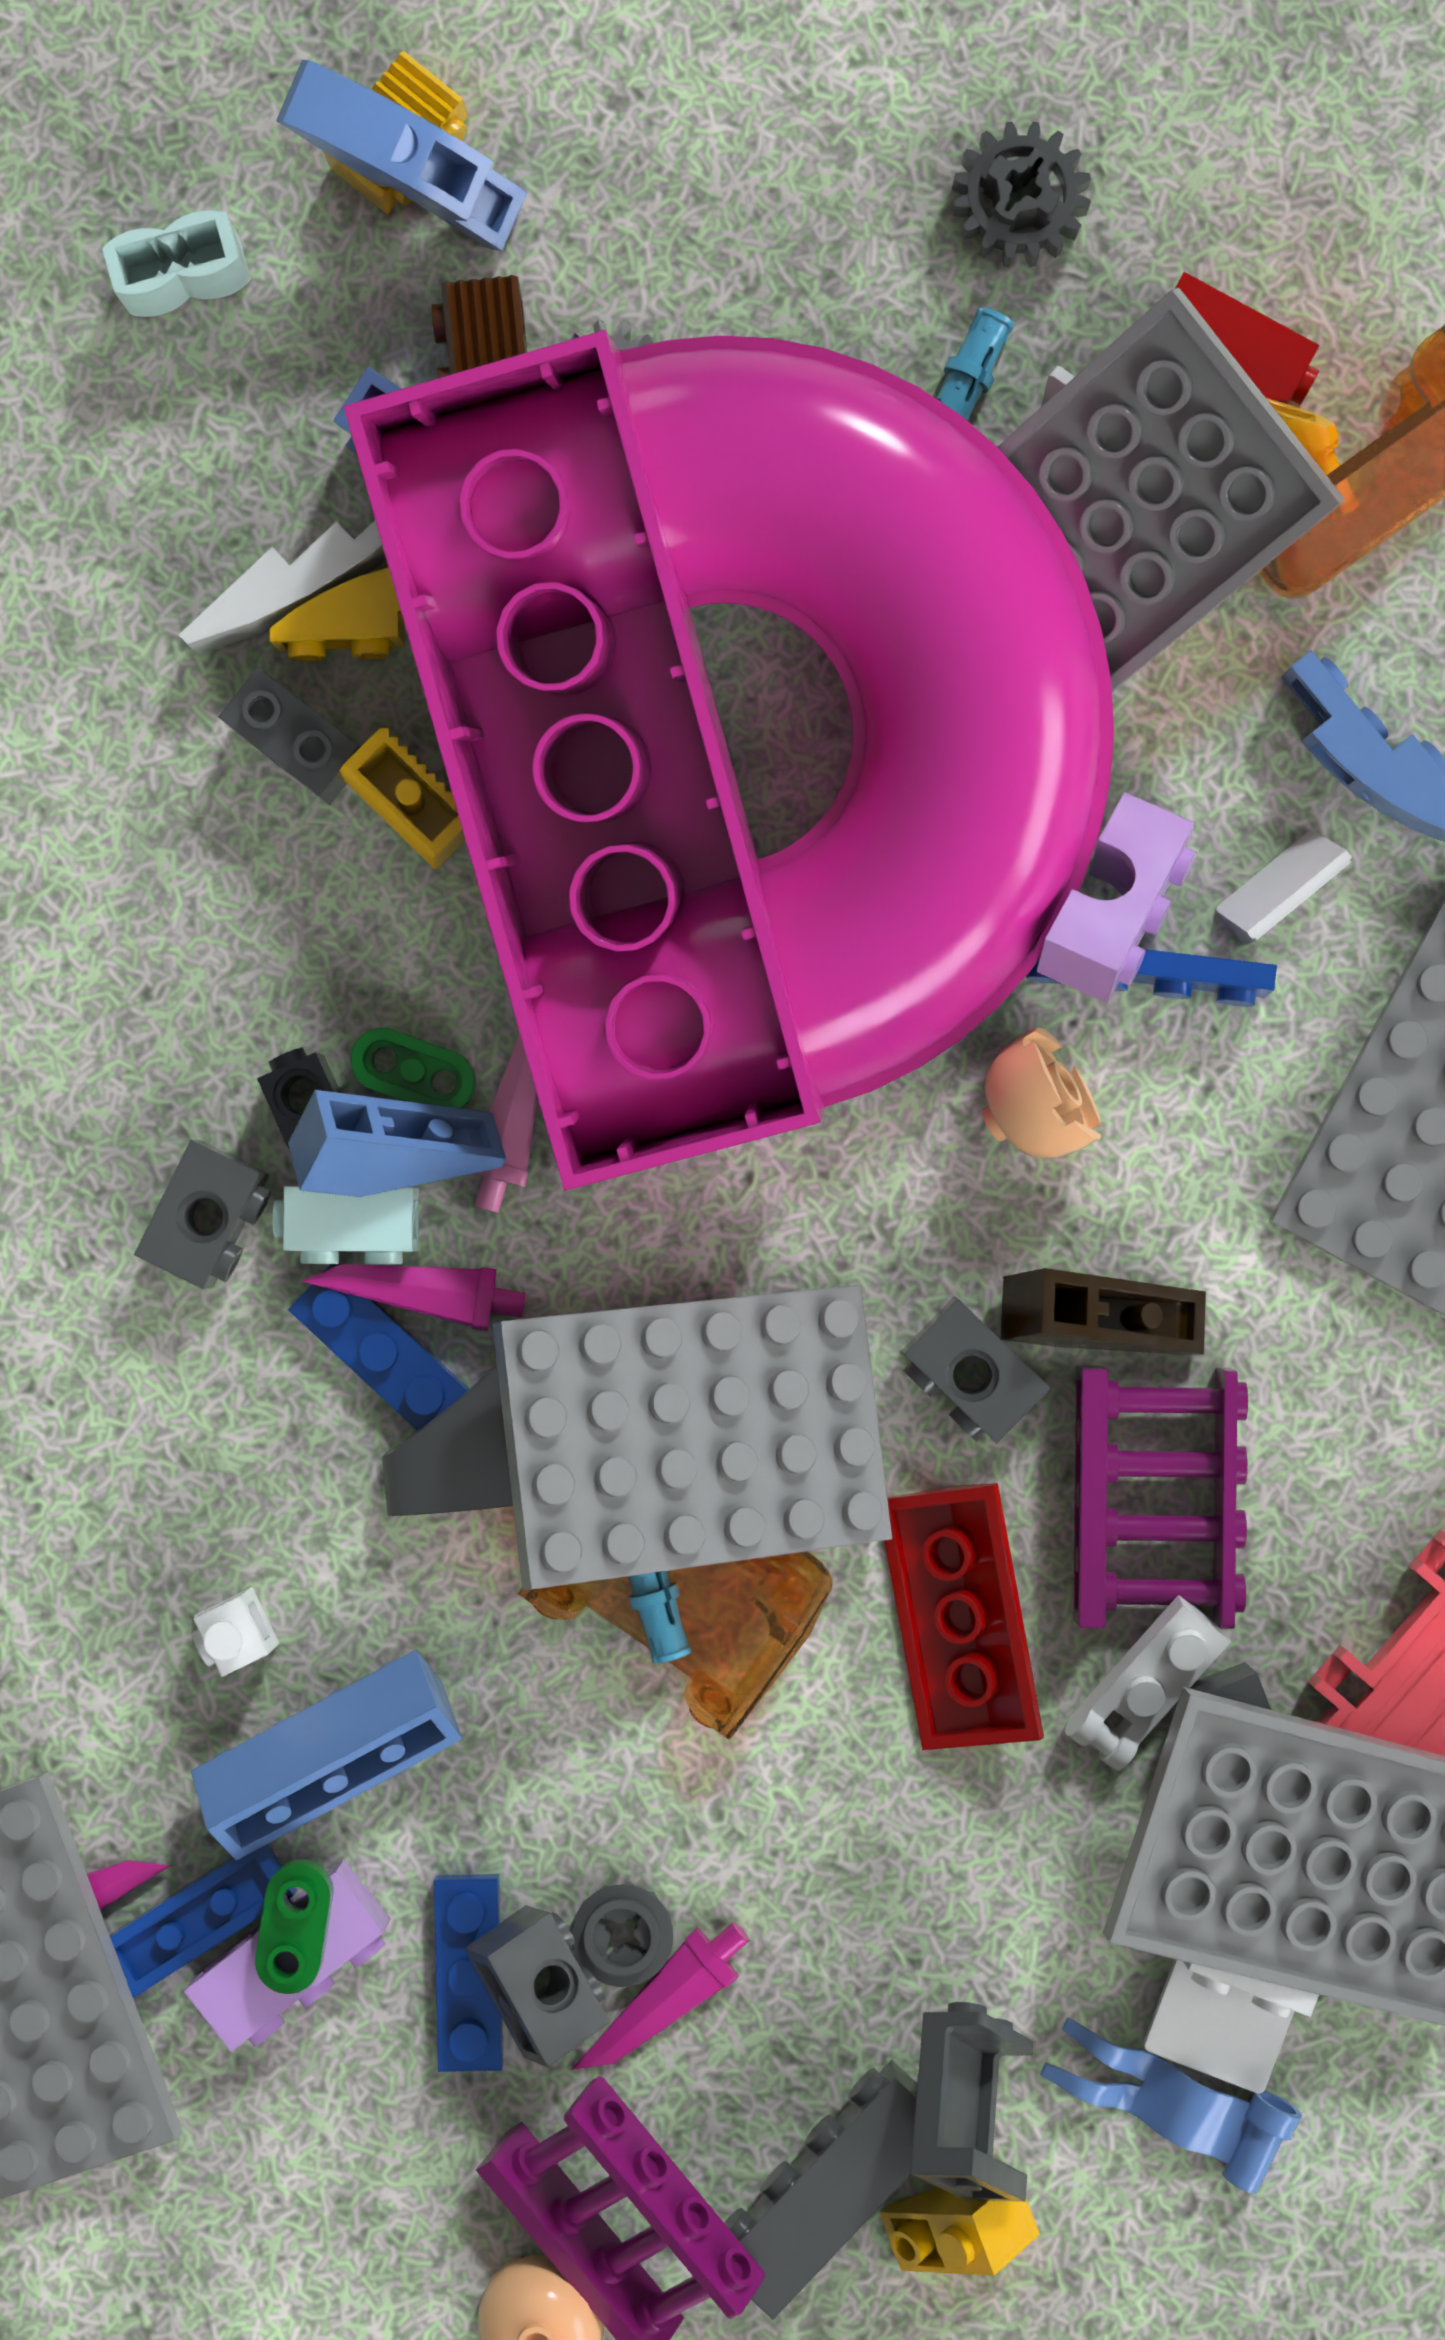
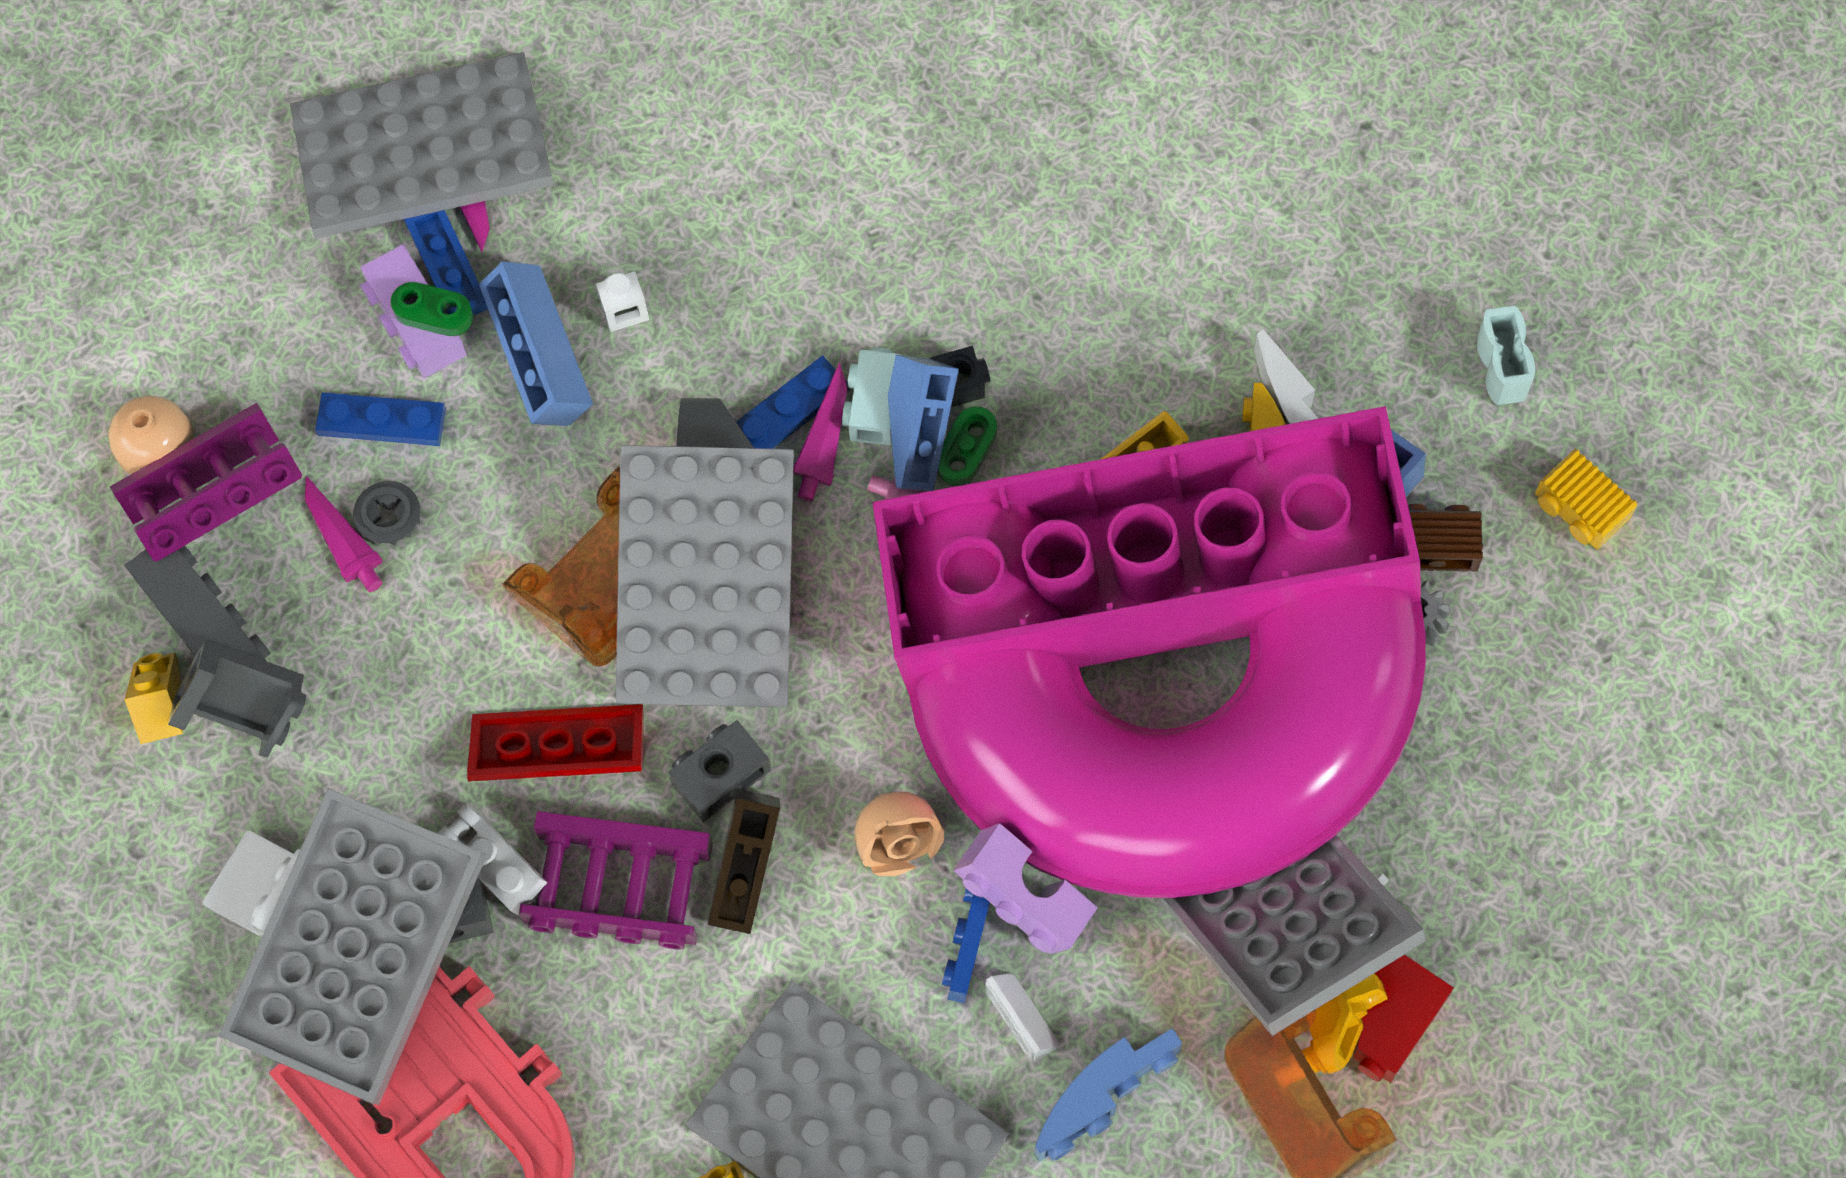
camera: 100 degrees right, 20 degrees down
(172, 1236) = (879, 292): dark grey brick -> none
(290, 734) = (1195, 390): dark grey brick -> none
(402, 153) = (1562, 491): medium blue slope -> none
(508, 1964) = (341, 459): dark grey brick -> none
(660, 1616) = (589, 555): medium azure pin -> none
(972, 366) = (1397, 847): medium azure pin -> none
(1040, 210) = (1531, 905): dark grey gear -> none
(1184, 2110) = (199, 851): medium blue flag -> none

